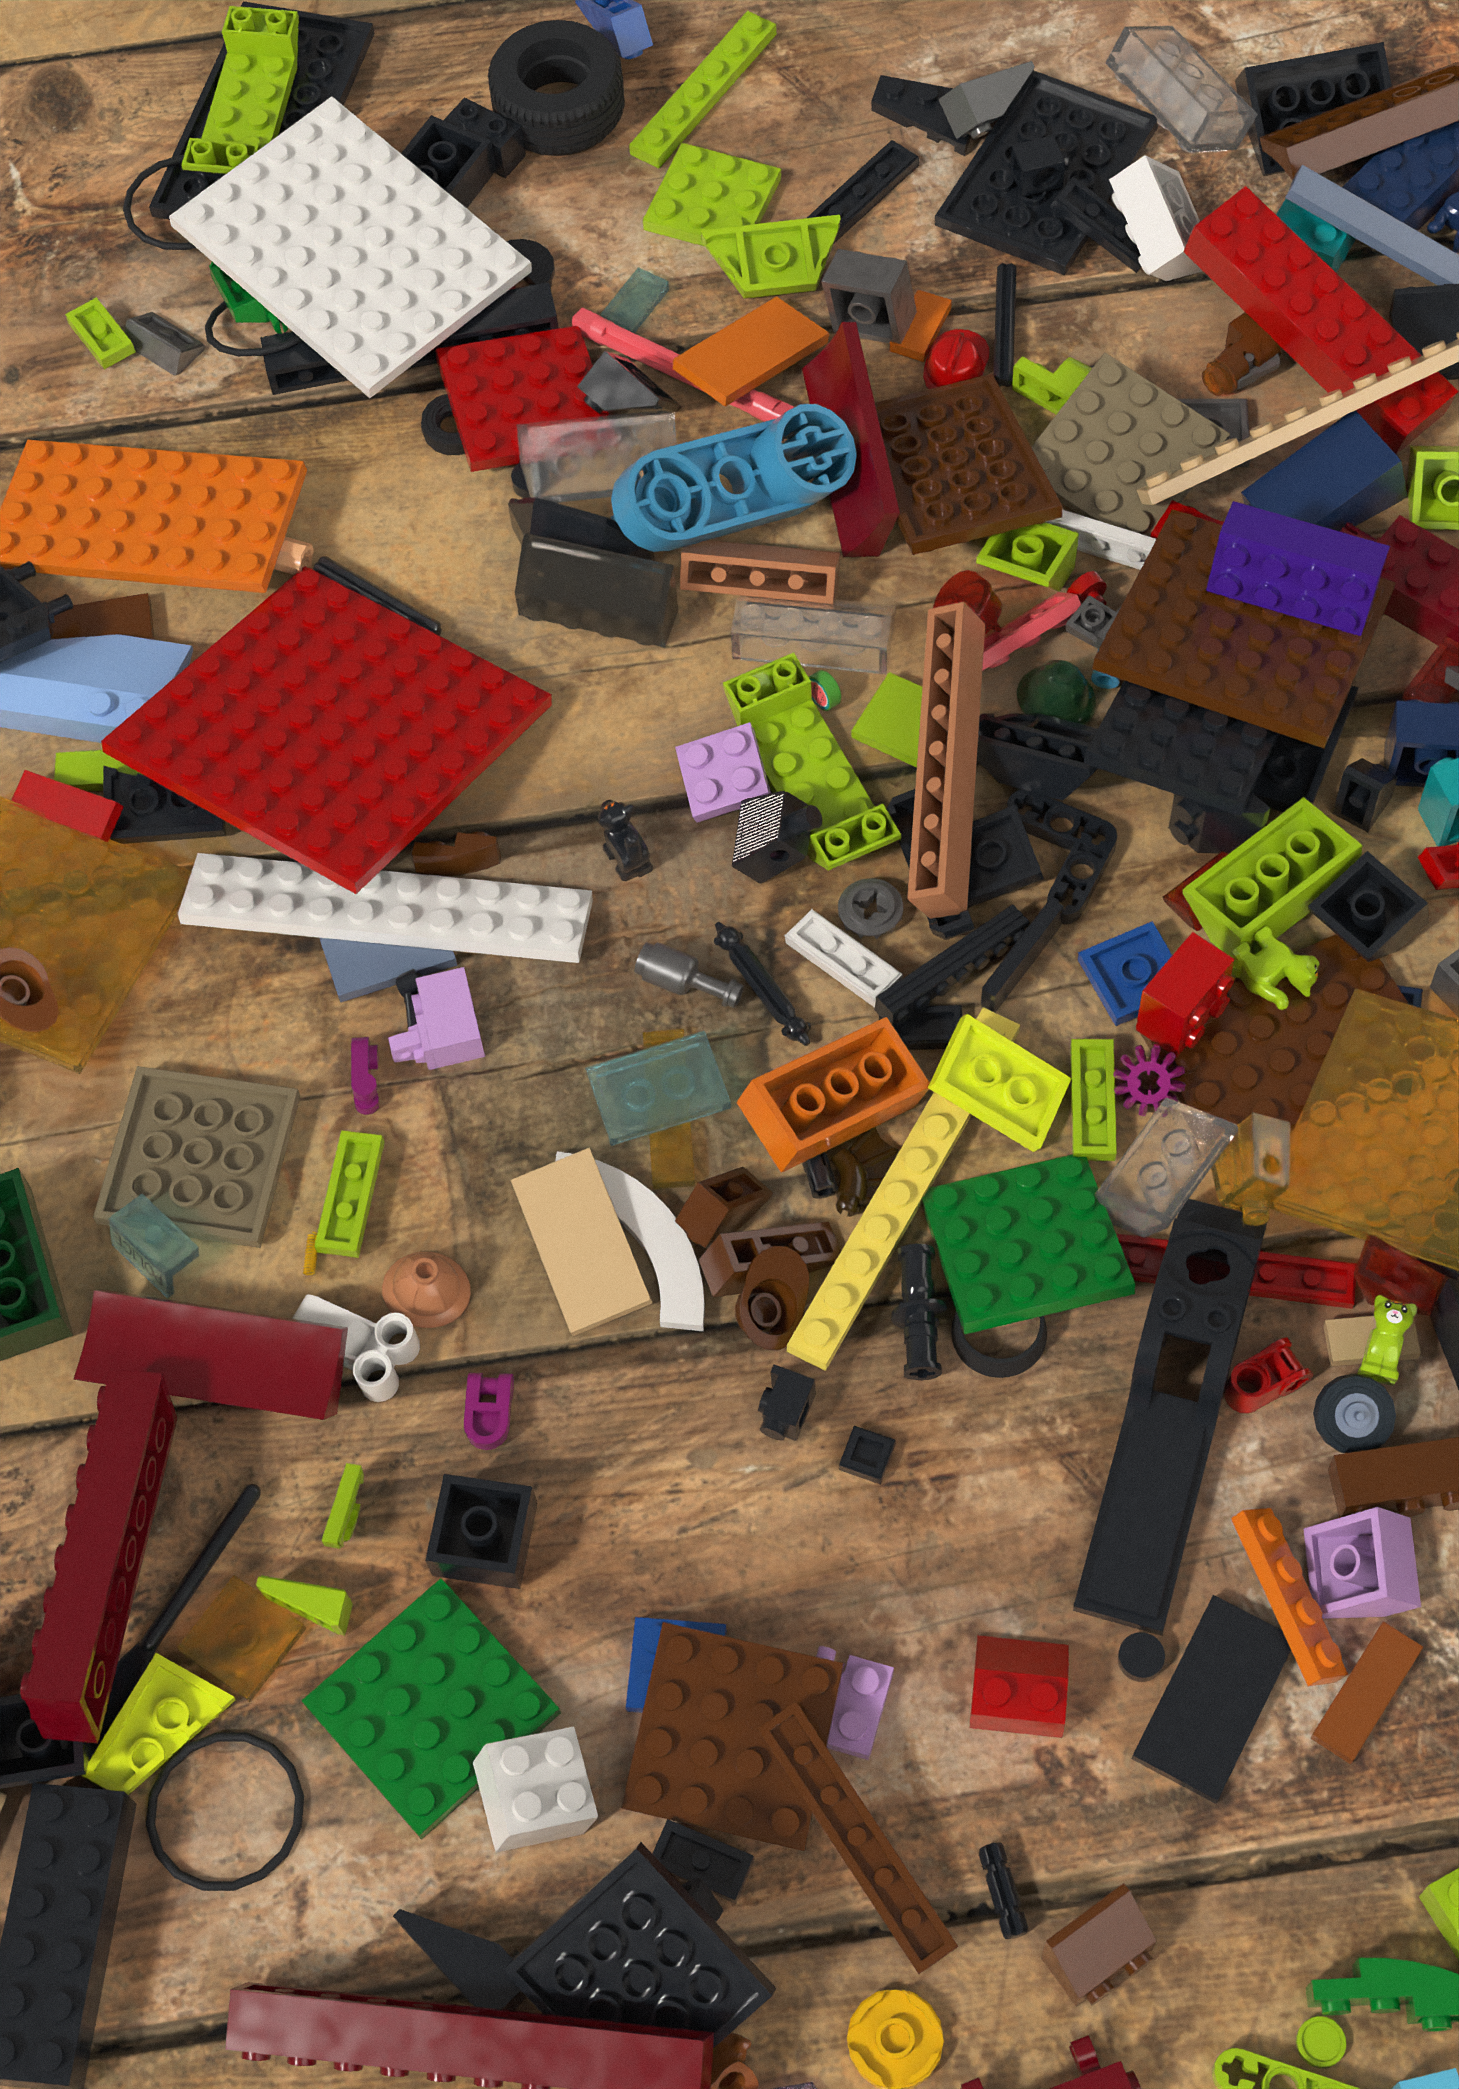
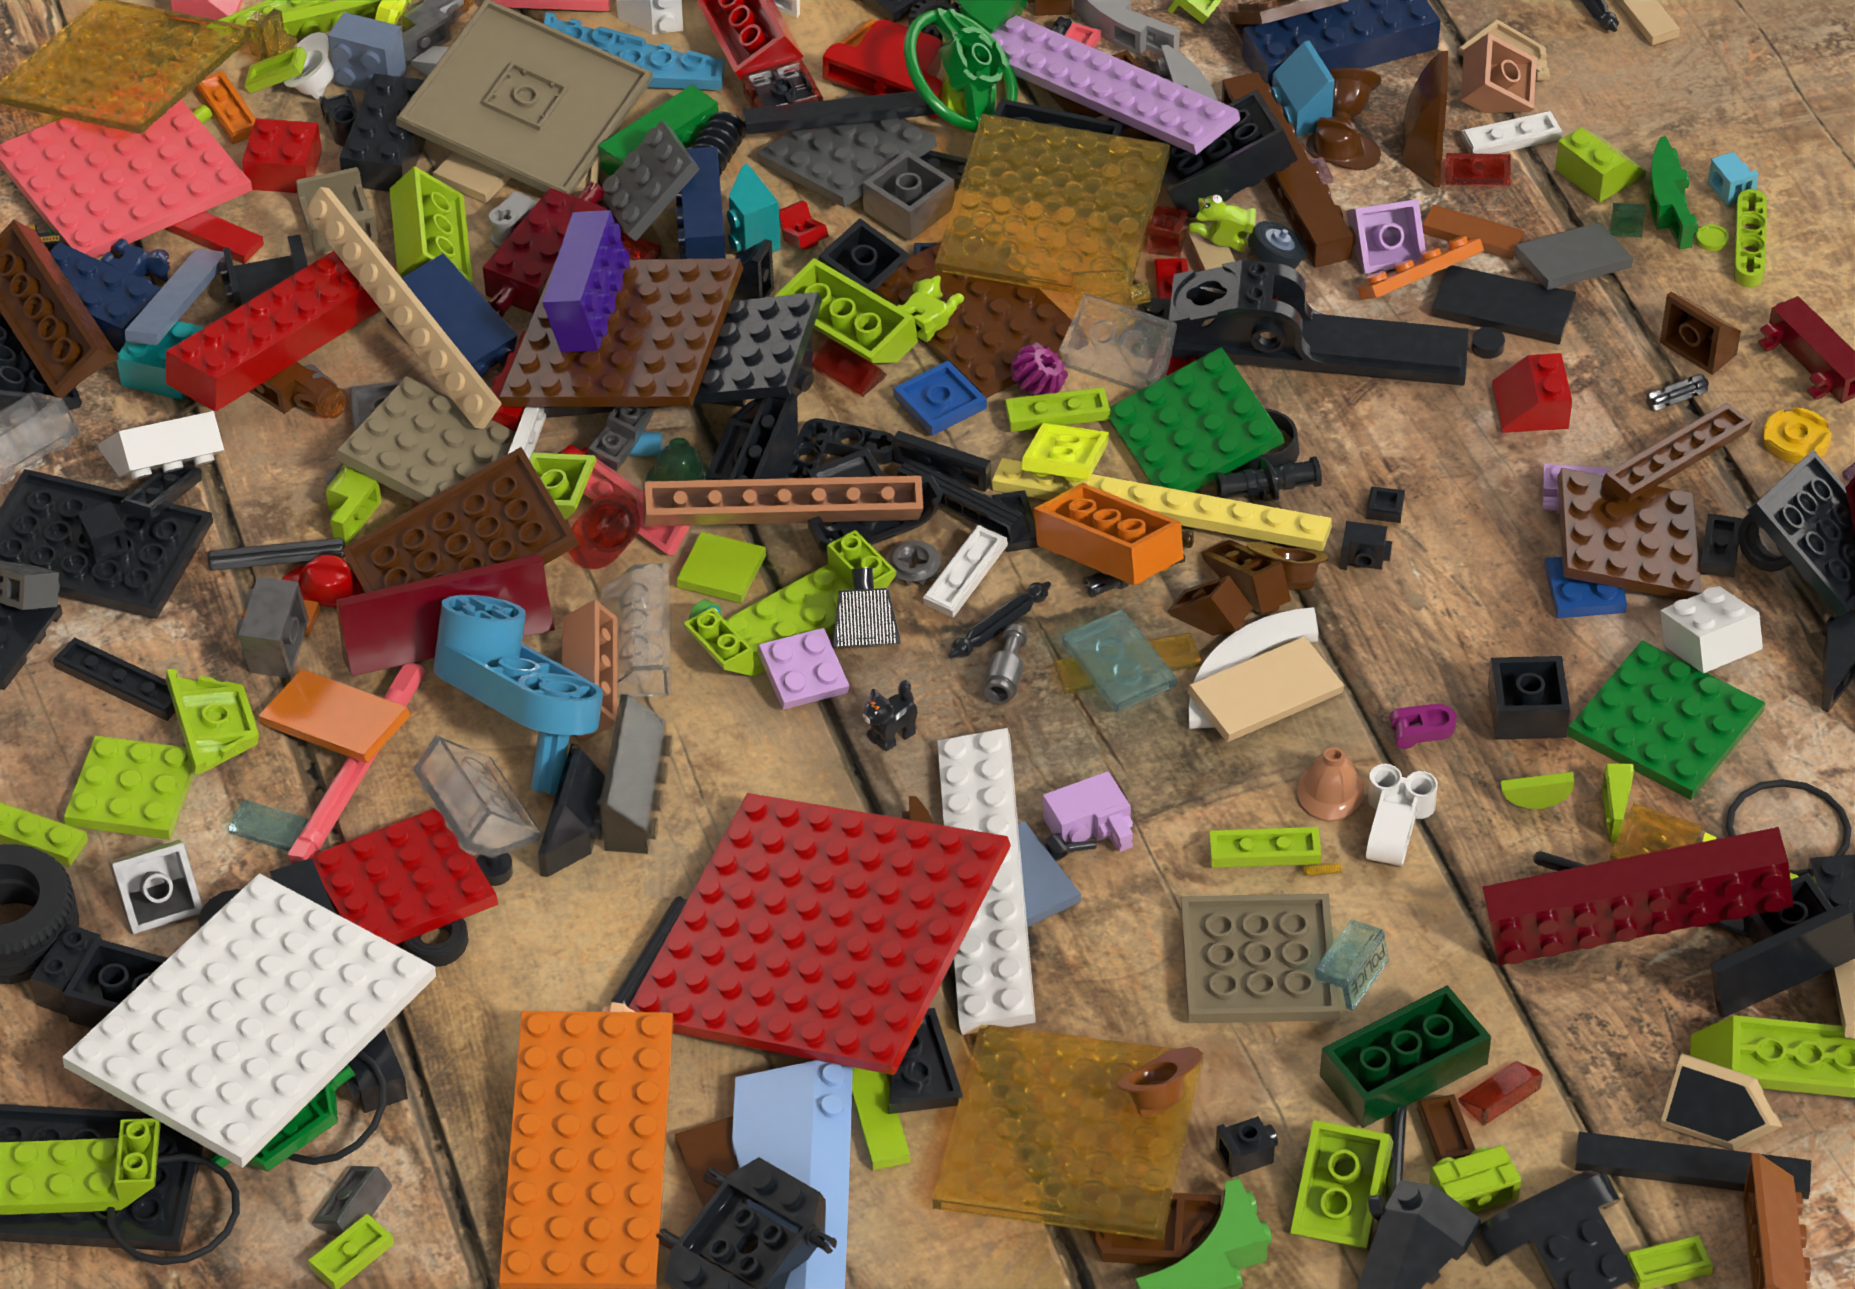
camera: 105 degrees left, 15 degrees down
(68, 805) = (934, 1129): red tile -> none
(217, 1353) = (1443, 892): dark red arch -> none
(364, 1086) = (1153, 857): magenta plate -> none
(573, 204) = (156, 886): none -> flat silver slope
(623, 388) = (400, 791): black slope -> none
(1185, 995) = (973, 339): red brick -> none
(1291, 1816) = (1573, 256): none -> dark grey tile
(1352, 1913) = (1627, 220): none -> clear green plate

